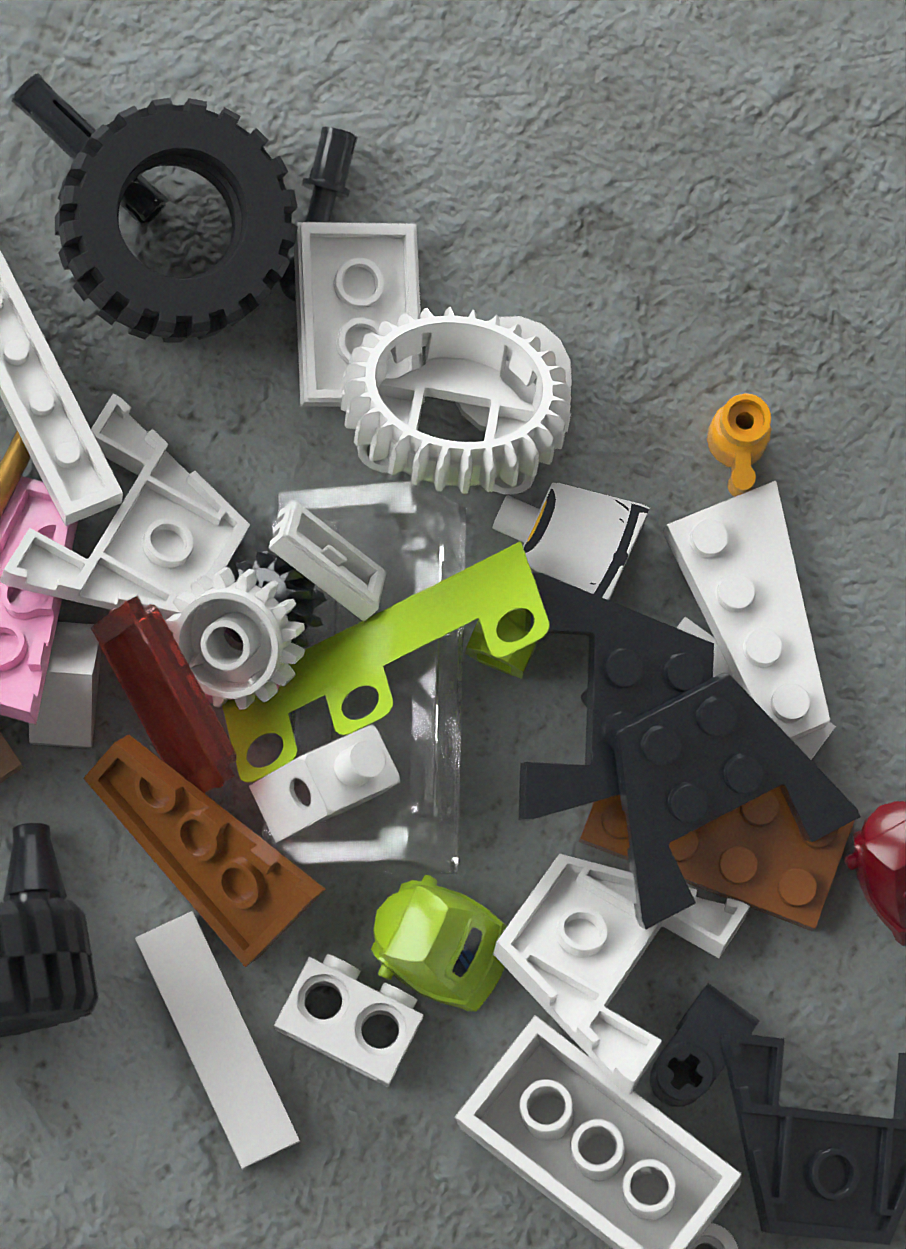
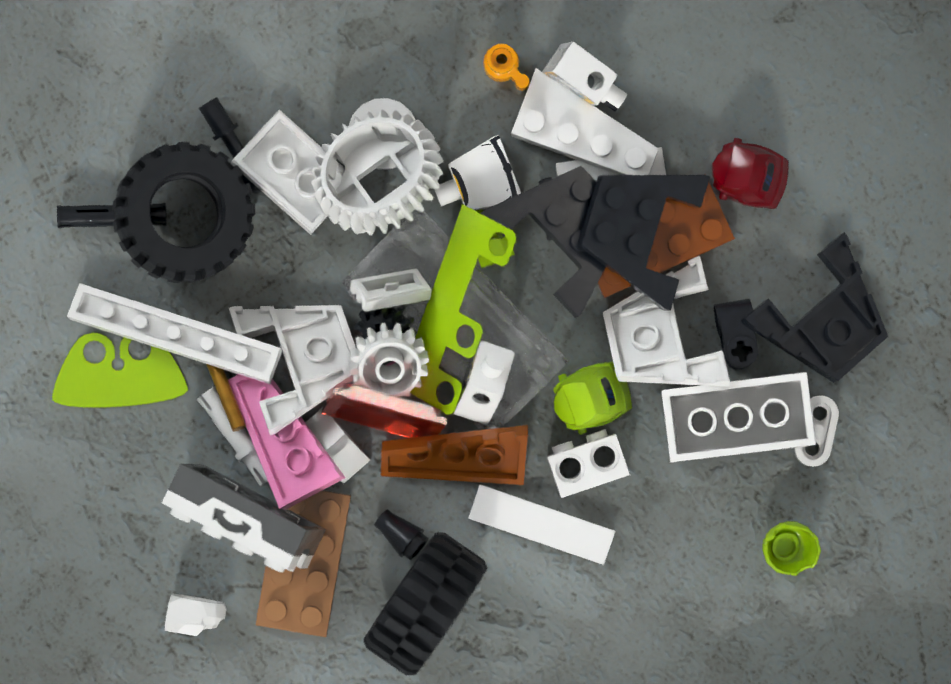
camera: 40 degrees left, 10 degrees up
(828, 518) = (571, 69): none -> white torso

